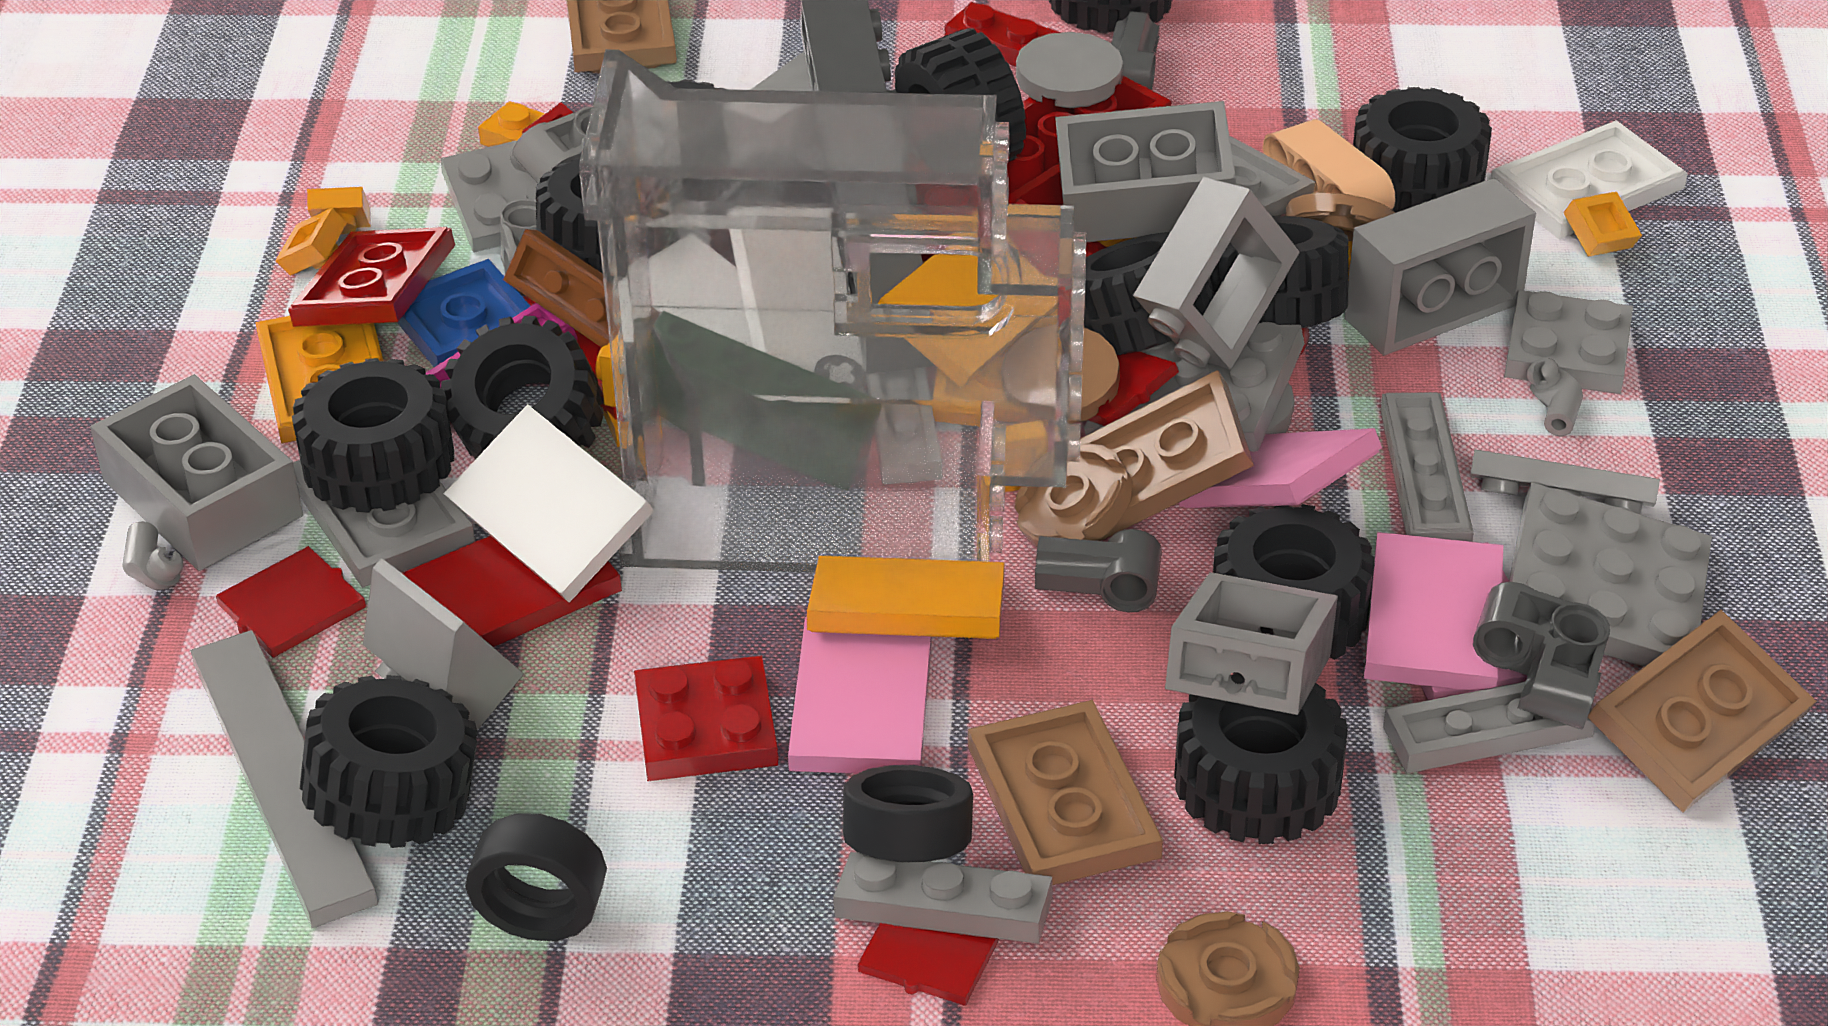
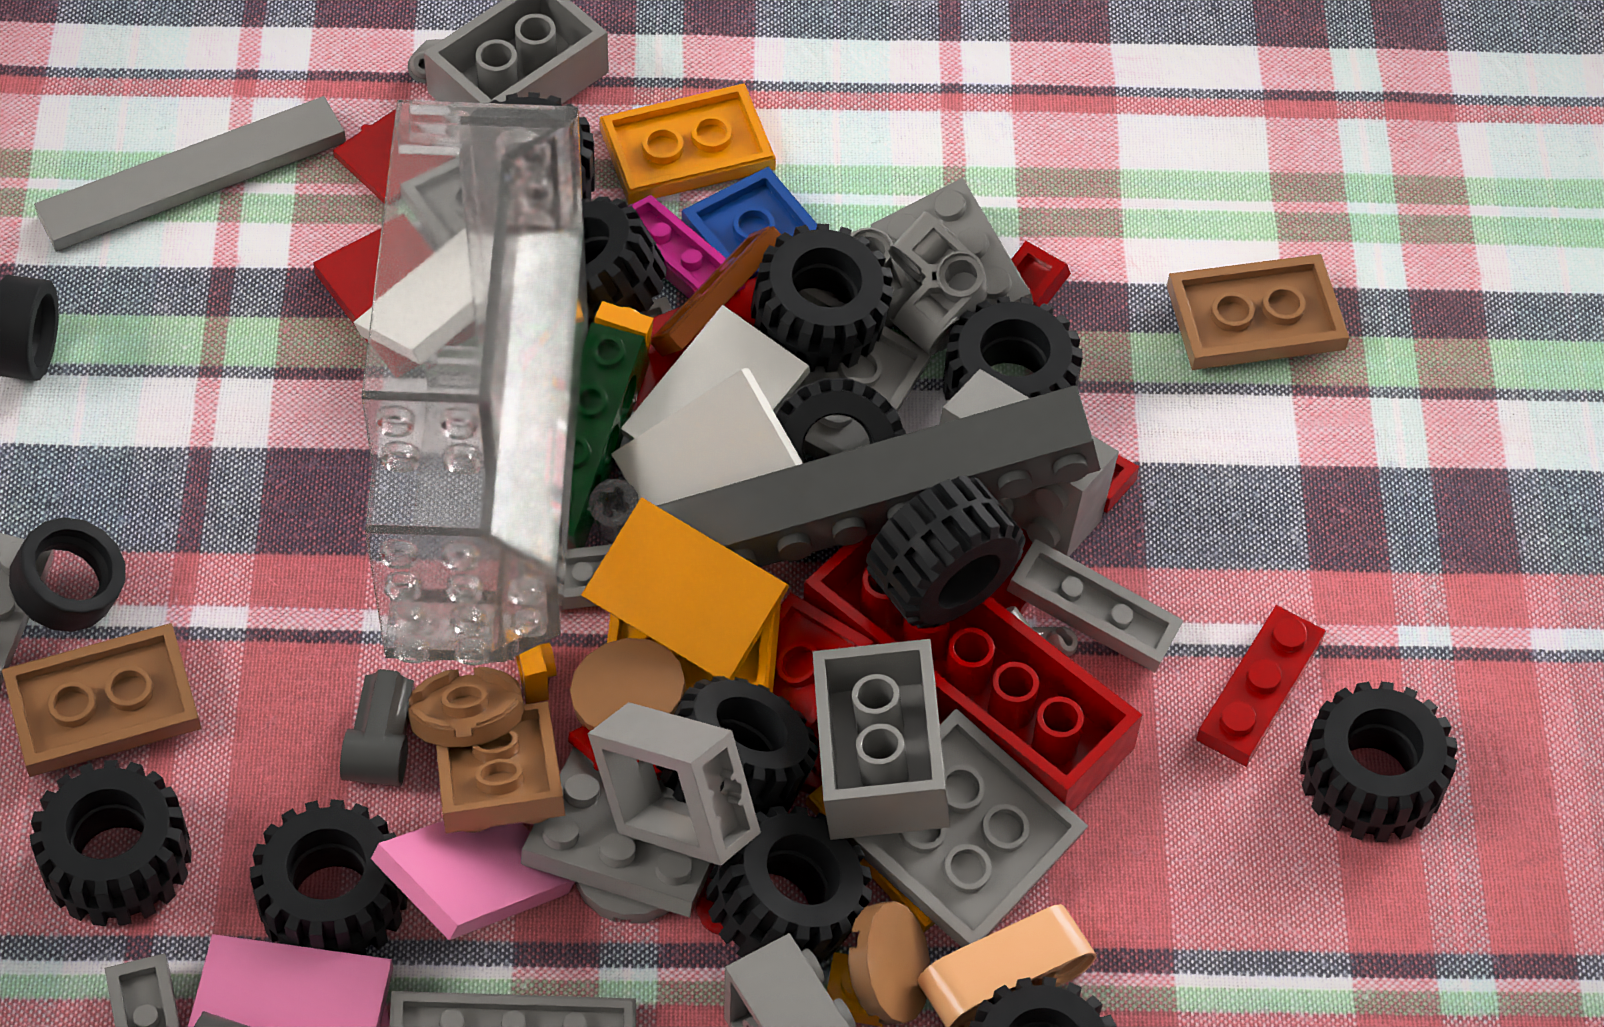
camera: 85 degrees right, 15 degrees up
(311, 242) = (854, 106): light orange plate -> none
(346, 201) = (903, 118): light orange plate -> none
(372, 277) = (796, 153): red tile -> none
(388, 761) = (158, 185): black tyre -> none
(431, 644) = (277, 238): light grey slope -> none
(507, 124) = (1066, 241): light orange plate -> none
(705, 718) = (228, 445): red plate -> none
(859, 702) = (243, 555): bright pink tile -> none
(906, 597) = (331, 584): light orange tile -> none
(1069, 68) = (1102, 685): light grey tile -> none
(1138, 42) = (1208, 782): dark grey piece -> none
(1223, 636) = (160, 850): light grey window -> none

